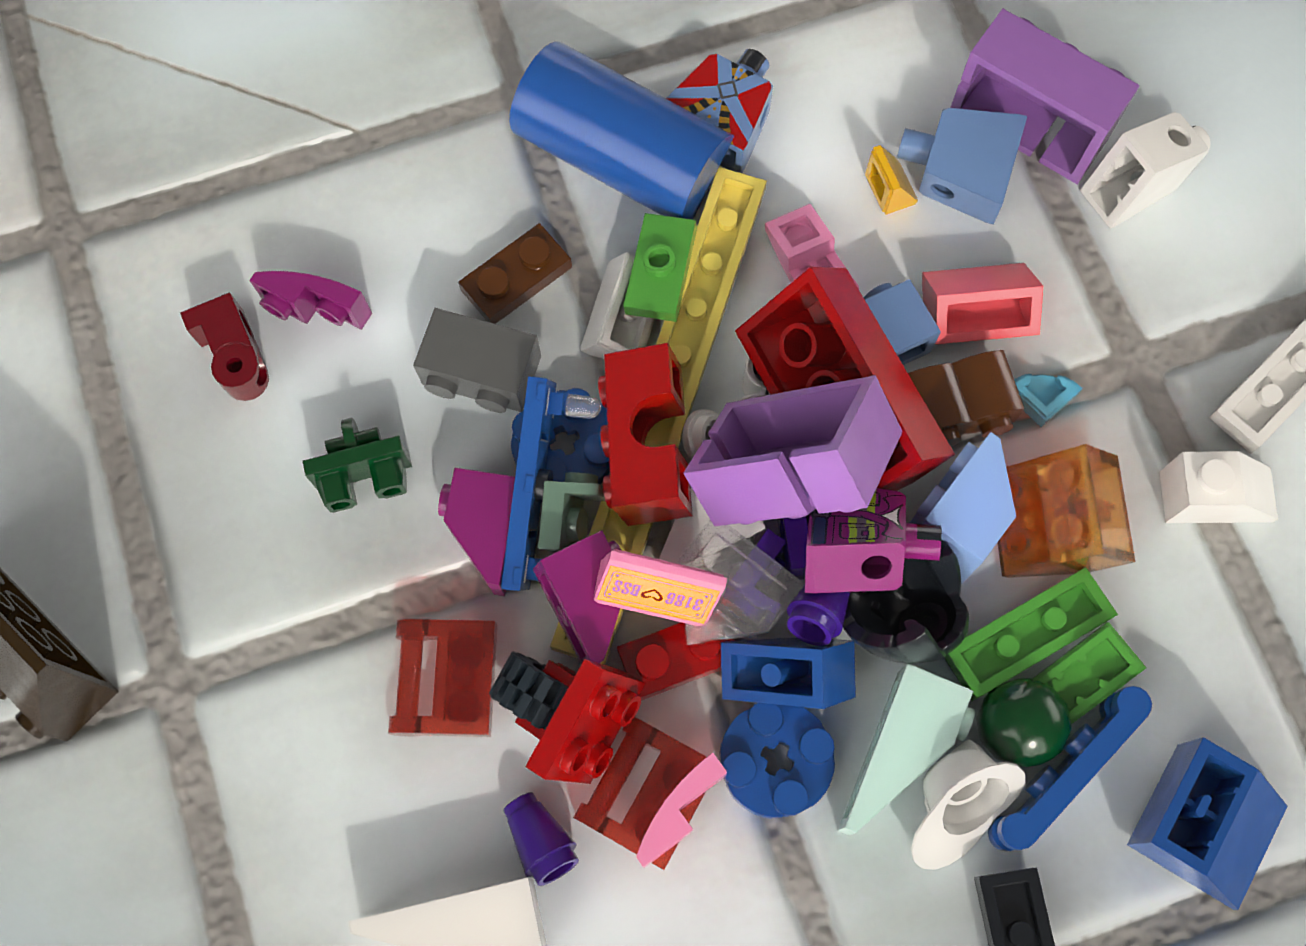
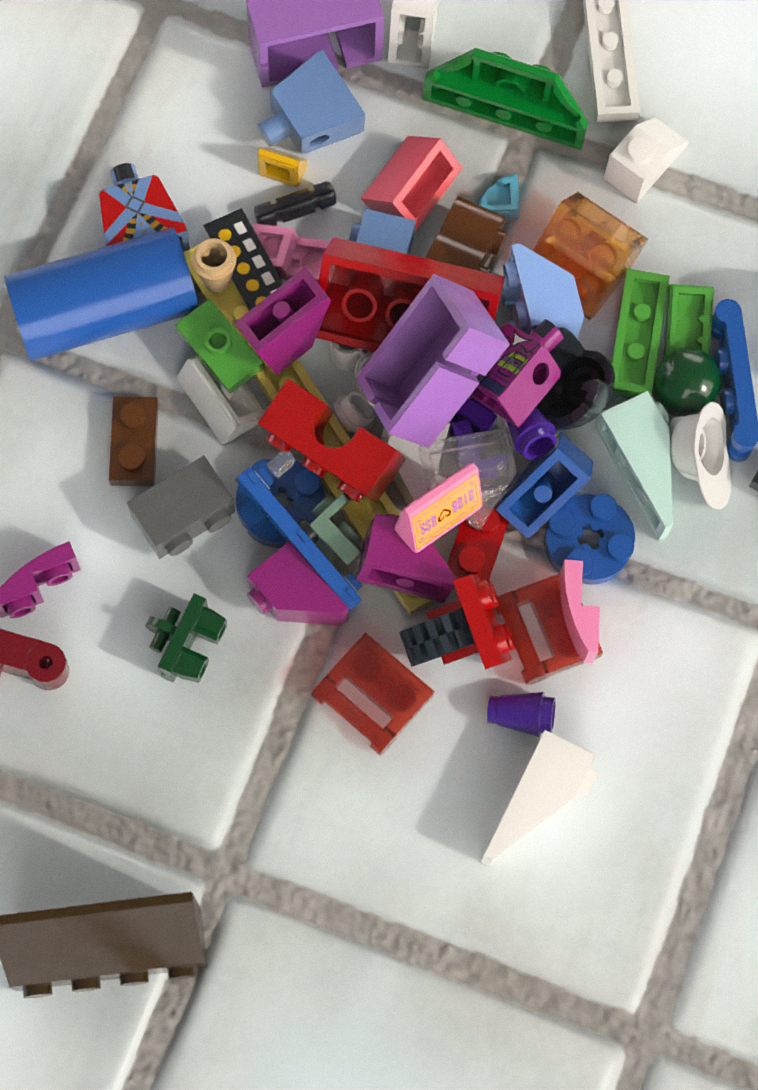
camera: 55 degrees left, 0 degrees up
(721, 296) = (286, 321): none -> magenta slope
(725, 193) = (214, 263): none -> tan cone
(762, 231) = (253, 270): none -> black sticker
(863, 224) = (295, 204): none -> black axle
(1153, 313) = (508, 94): none -> green wedge

